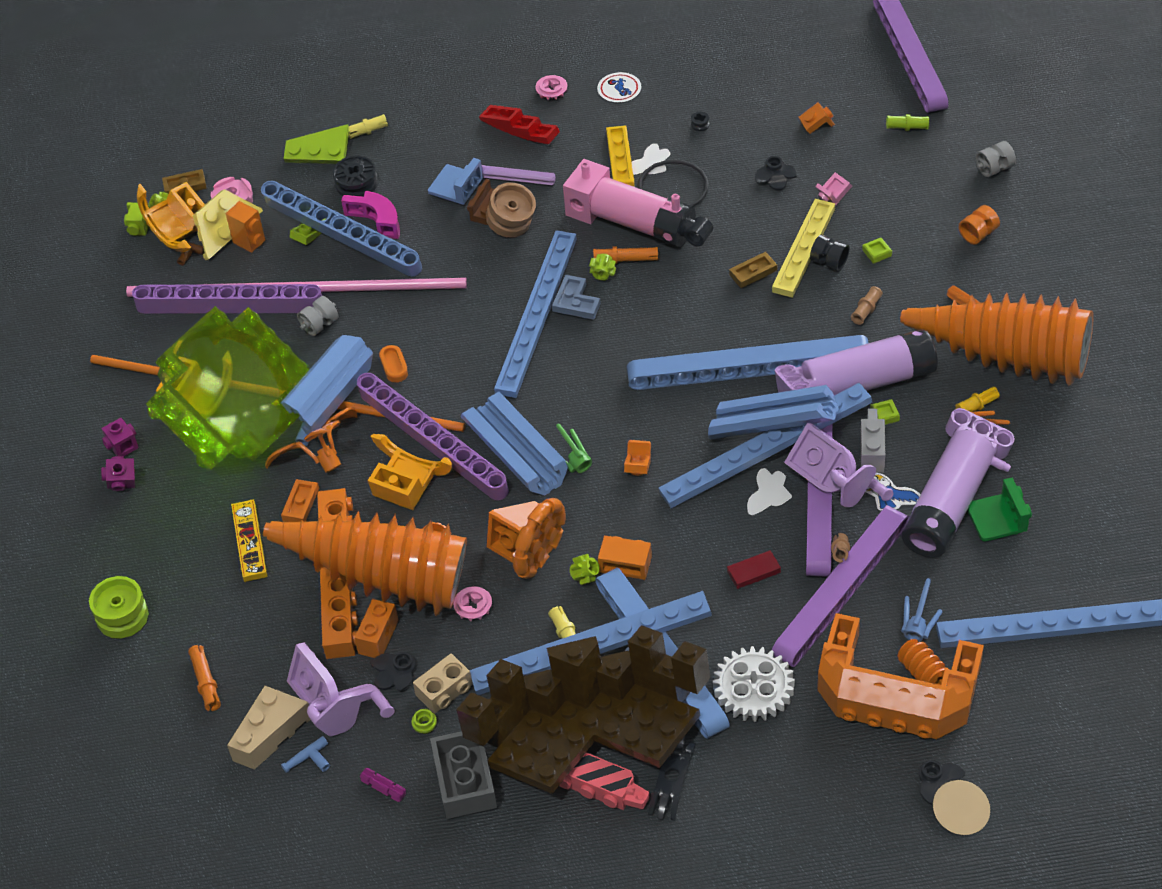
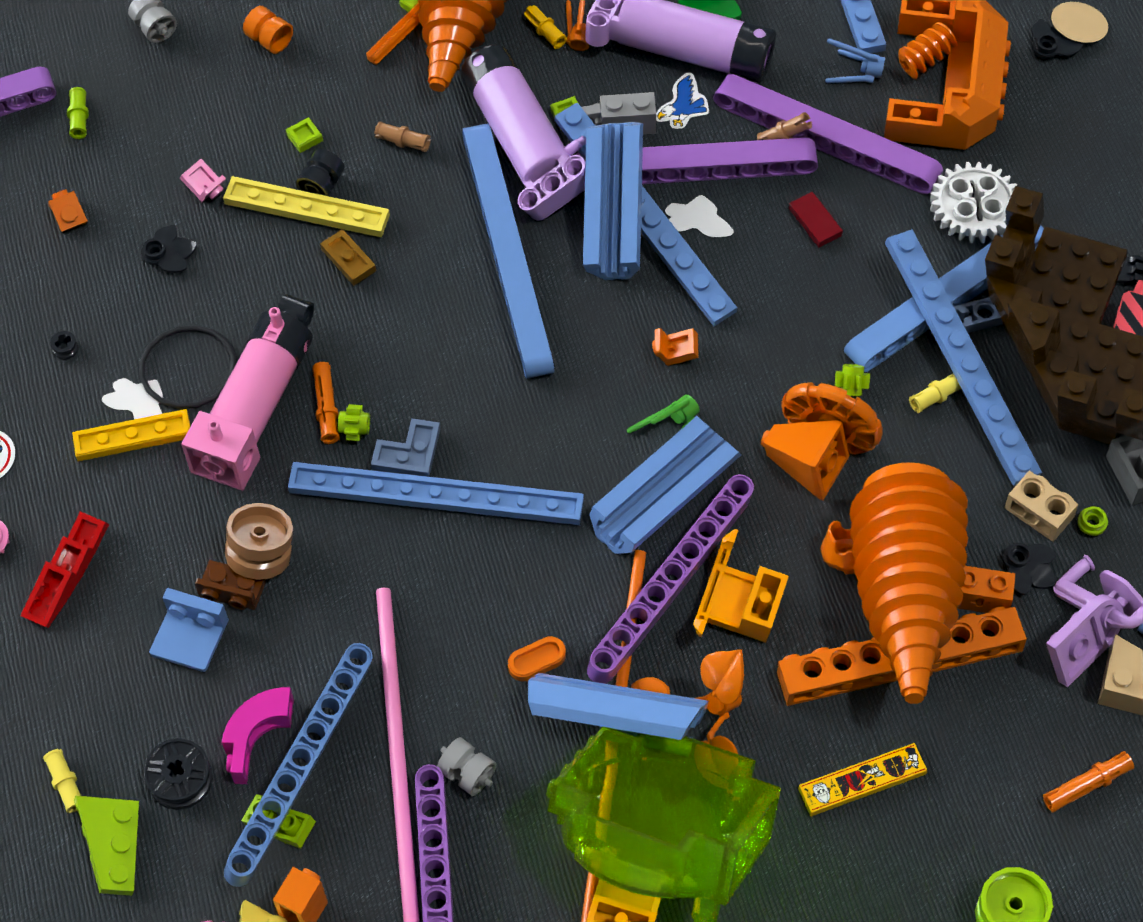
camera: 100 degrees left, 10 degrees up
(300, 501) = (794, 725): orange plate -> none
(518, 175) = (169, 558): lavender axle -> none
(628, 555) = (825, 342): orange brick -> none
(820, 460) = (679, 140): lavender plate -> none

